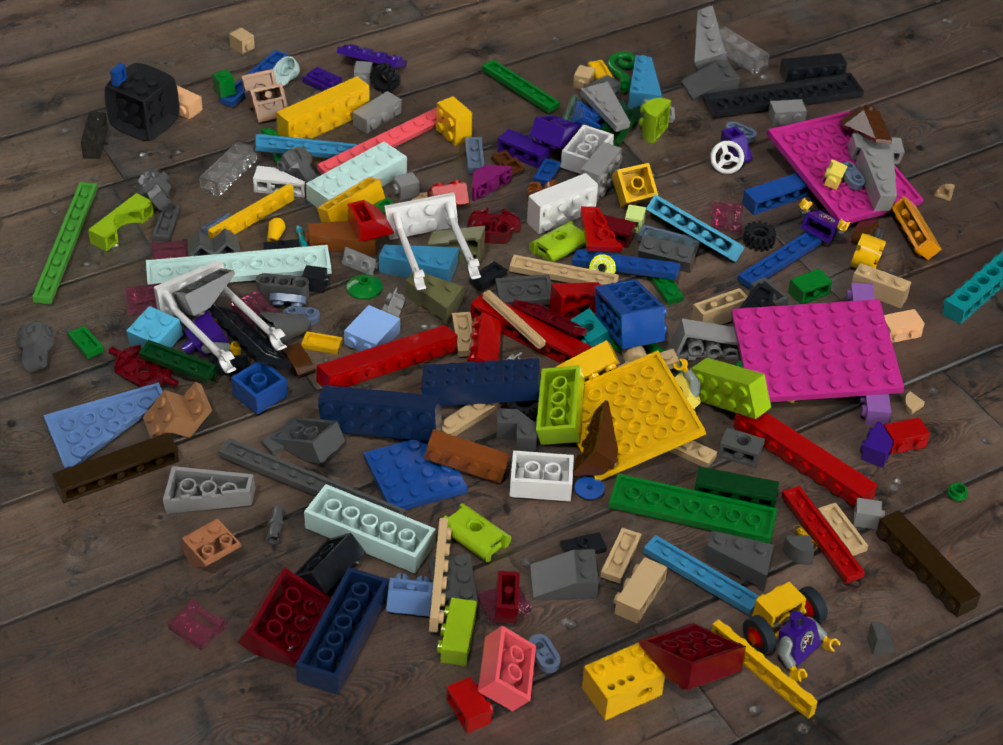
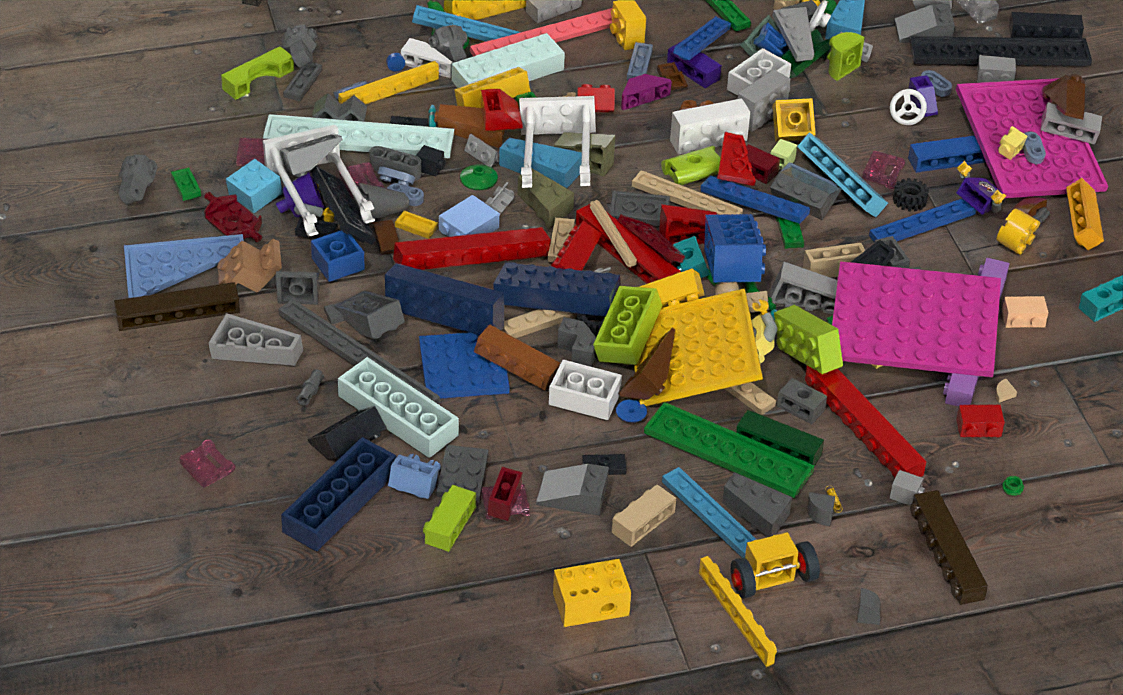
camera: 15 degrees right, 0 degrees up
(64, 243) = (196, 84): bright green plate -> none
(163, 253) = (285, 104): clear pink plate -> none
(178, 361) = (267, 217): dark green panel -> none
(209, 544) = (239, 391): nougat slope -> none
(228, 169) = (380, 36): clear brick -> none
(232, 425) = (299, 286): none -> dark grey slope
(250, 190) = (395, 62): none -> blue tile
(275, 229) = (408, 105): yellow cone -> none
(284, 619) = (286, 472): dark red slope -> none
(406, 186) = (555, 83): light grey brick -> none
(440, 581) = (446, 464): tan plate -> none
(469, 704) = (436, 584): red brick -> none
(477, 533) = (500, 431): lime piece -> none
(488, 275) = (605, 187): black plate -> none
(498, 230) = (631, 143): dark red piece -> none
(507, 668) = (481, 558): coral brick -> none
(524, 124) = (701, 38): none -> blue plate
(546, 654) = (527, 558): sand blue plate -> none
(547, 171) = (709, 91): blue plate -> none
(553, 130) = (727, 49): dark purple brick -> none
(603, 263) = (730, 194): neon yellow piece -> none
(621, 555) = (637, 479): tan plate -> none
(622, 89) = (819, 17): none -> white piece
(694, 655) = (668, 583): dark red slope -> none
(798, 640) = (783, 590): torso -> none
(810, 286) = (943, 255): green brick -> none
(823, 534) = (852, 499): red plate -> none
(844, 528) = (874, 498): tan plate -> none
(877, 446) = (945, 426): dark purple slope -> none
(879, 175) = (1061, 146): light grey wedge -> none
(886, 286) = (1023, 267): tan brick -> none

